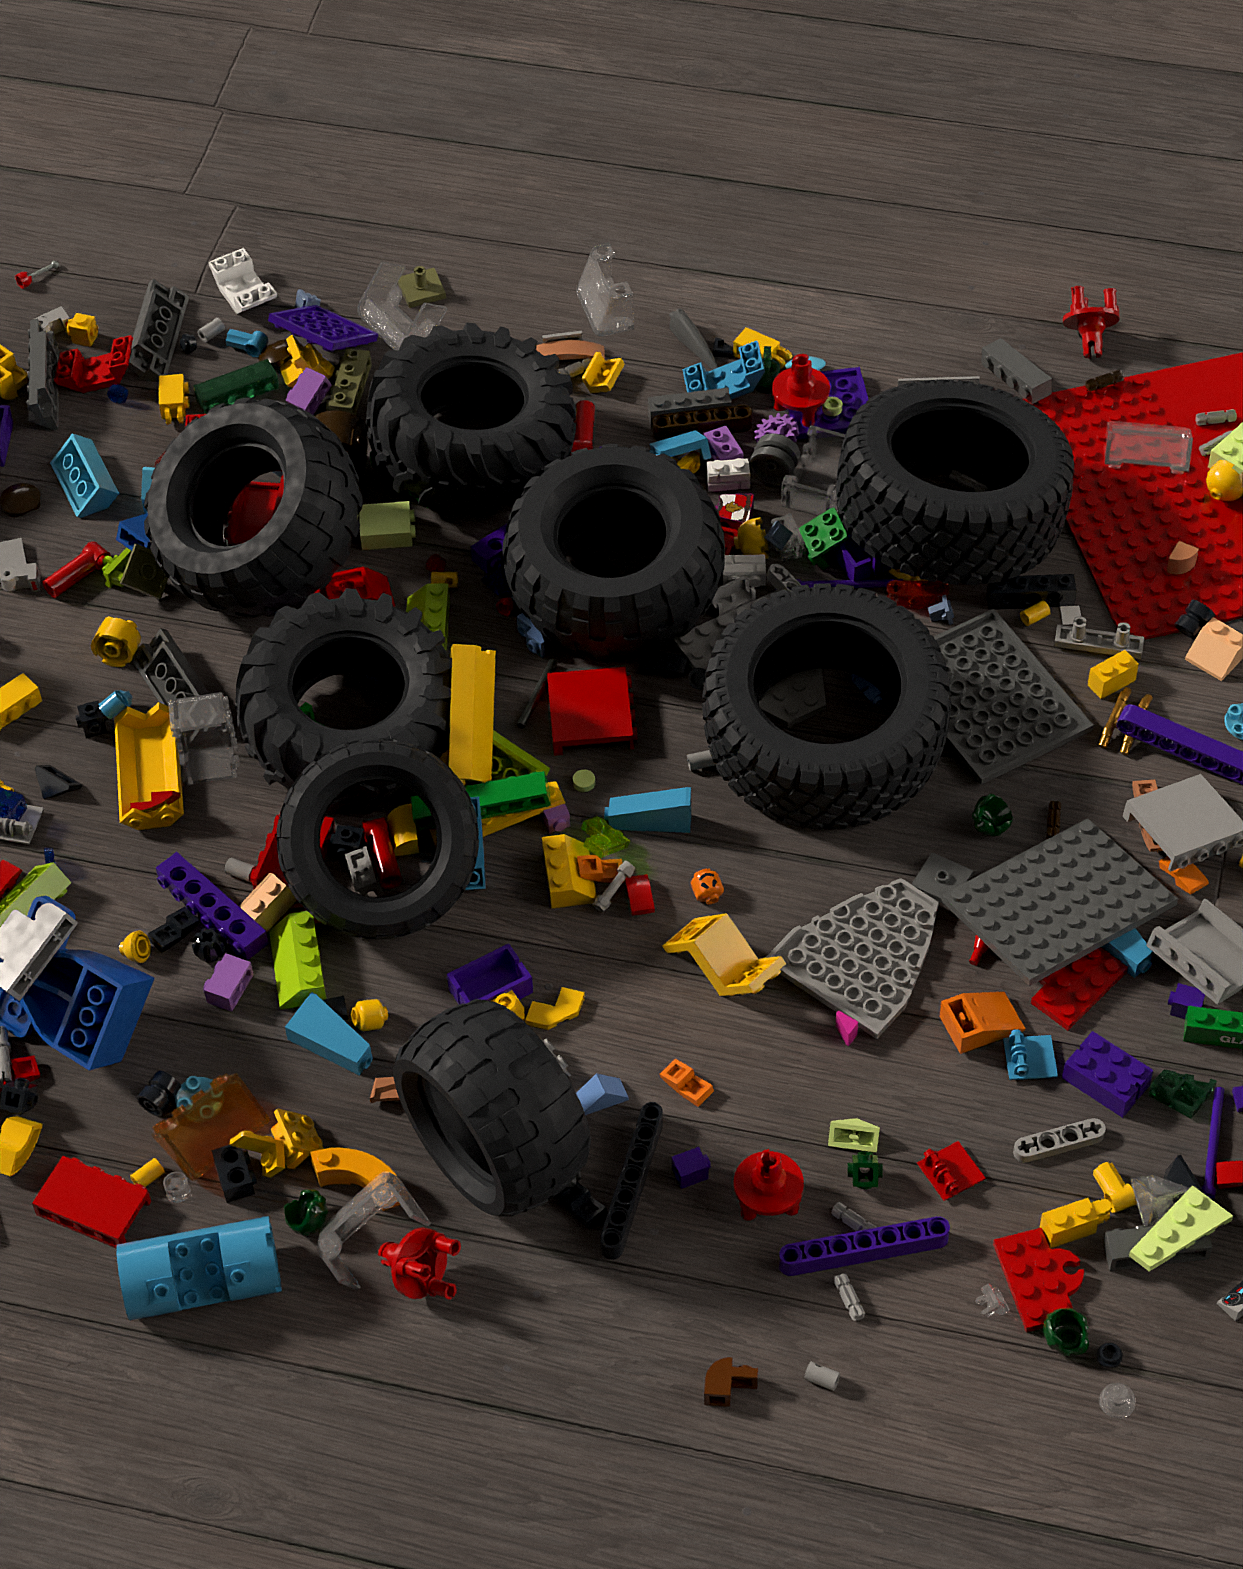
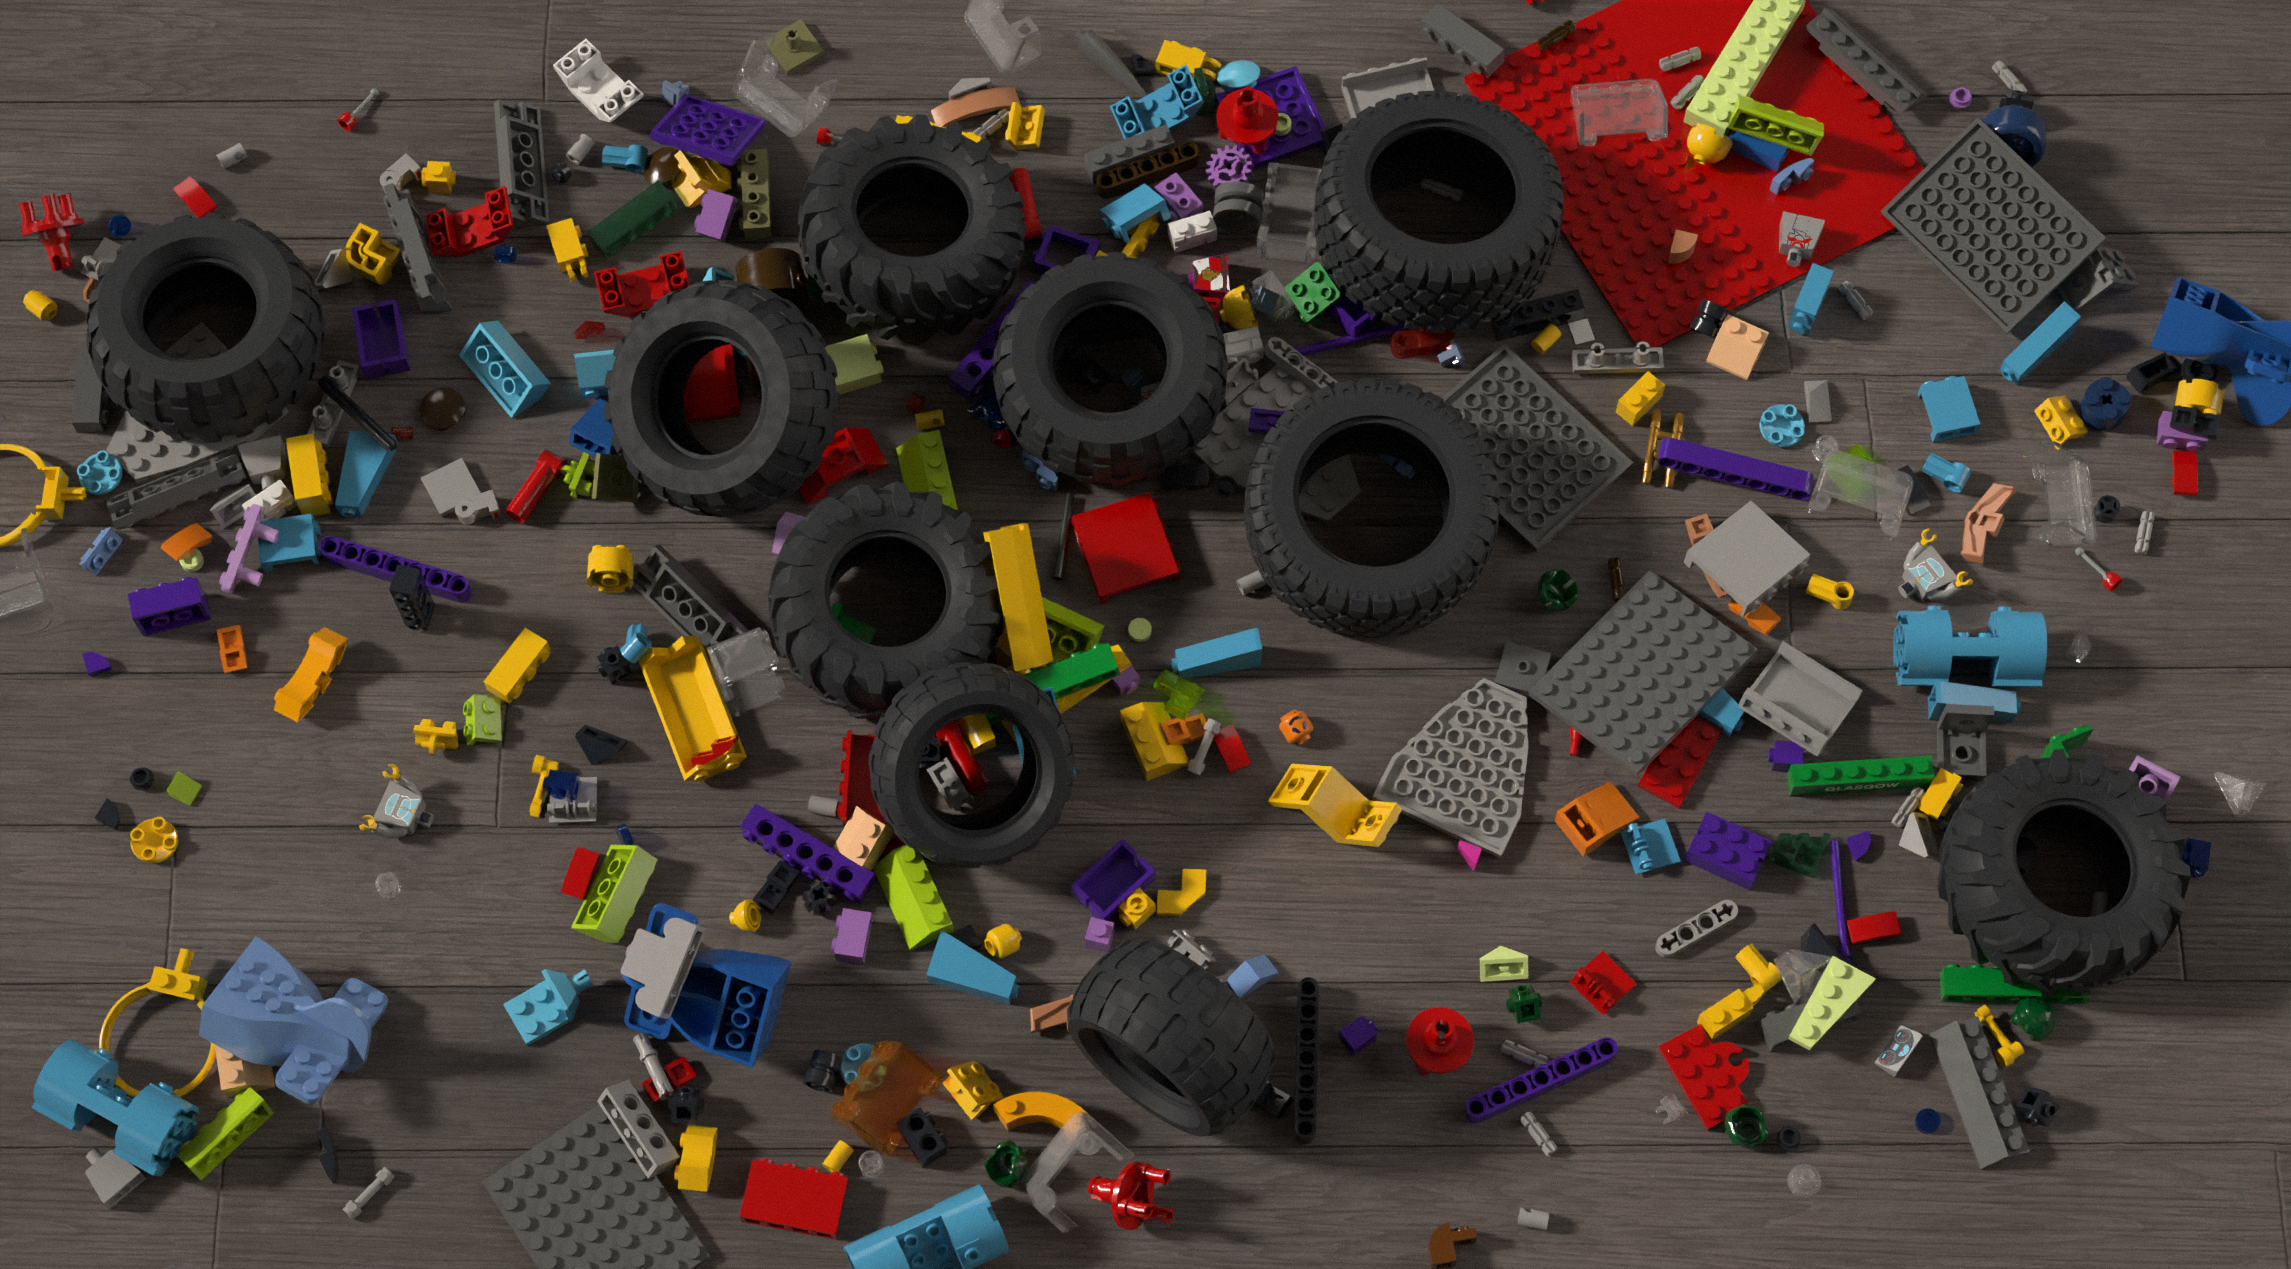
camera: 15 degrees left, 15 degrees up
(271, 1149) = (952, 1108): yellow bracket -> none
(686, 1083) = (1330, 945): orange slope -> none

